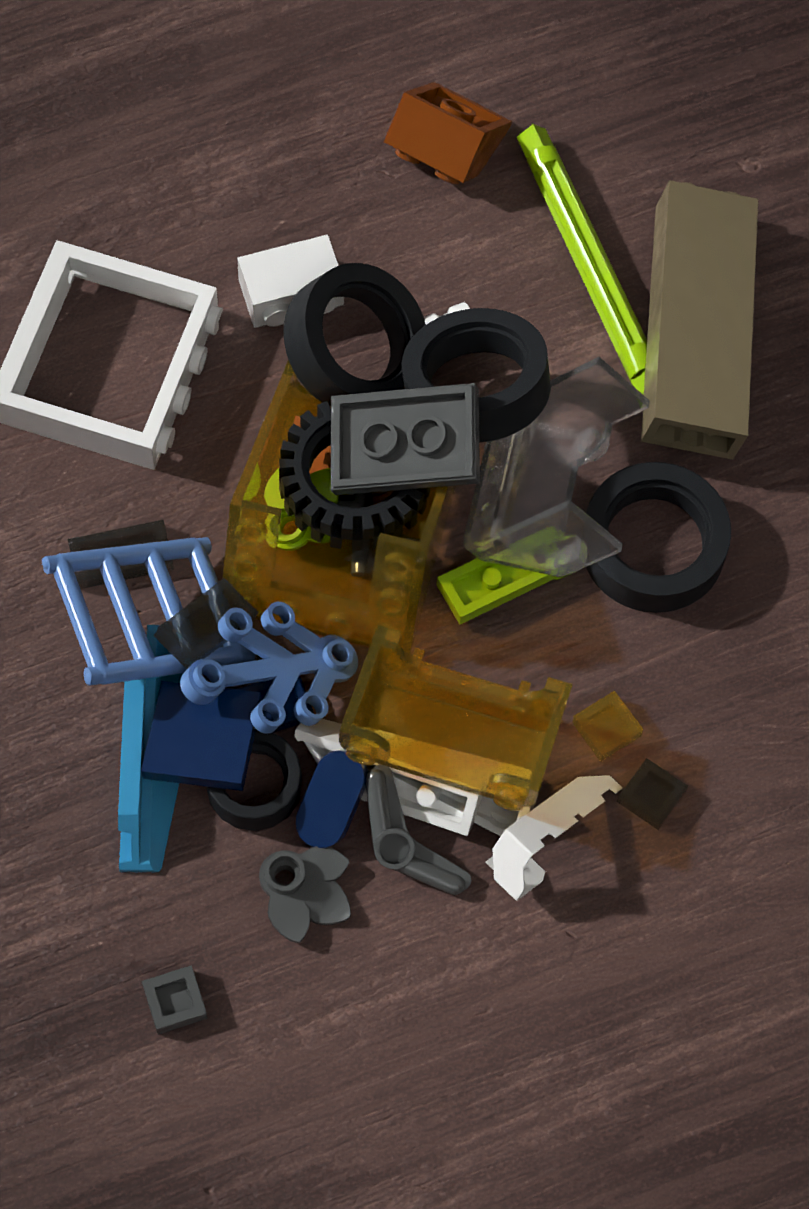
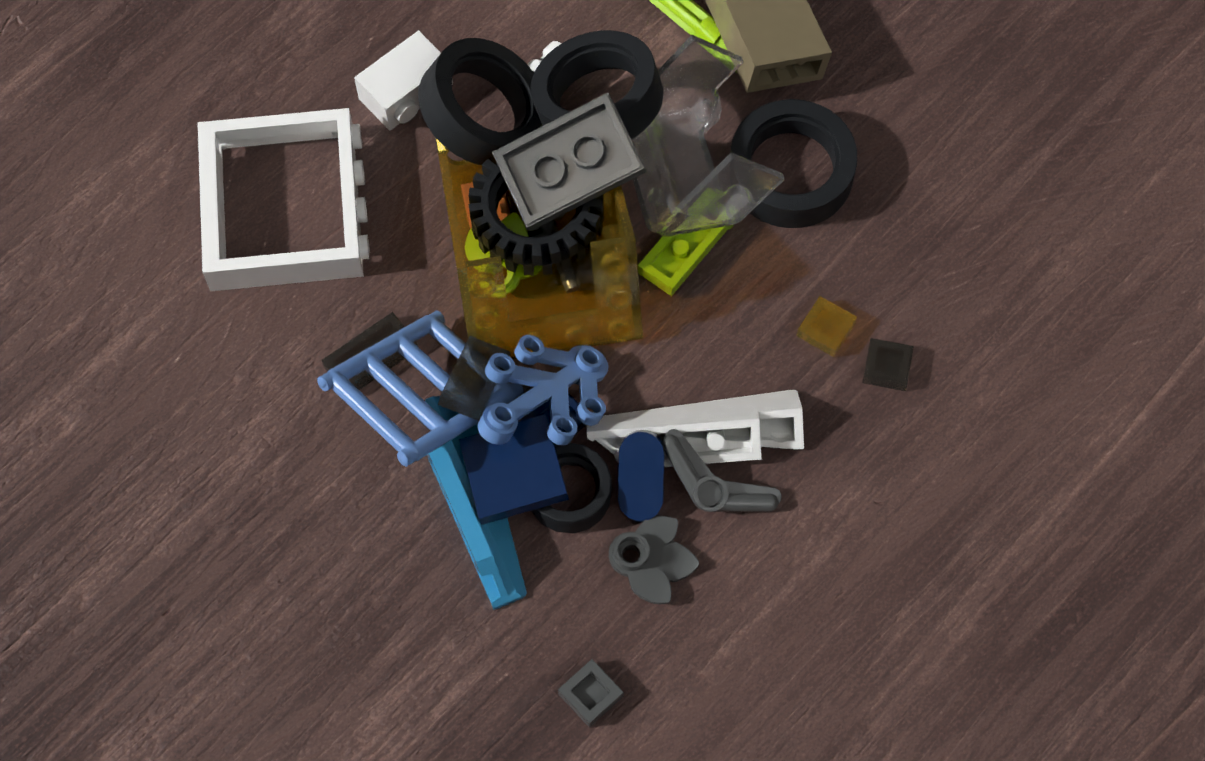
camera: 20 degrees left, 0 degrees up
(452, 724) = (715, 373): clear yellow windscreen -> none
(520, 841) = (813, 445): white piece -> none

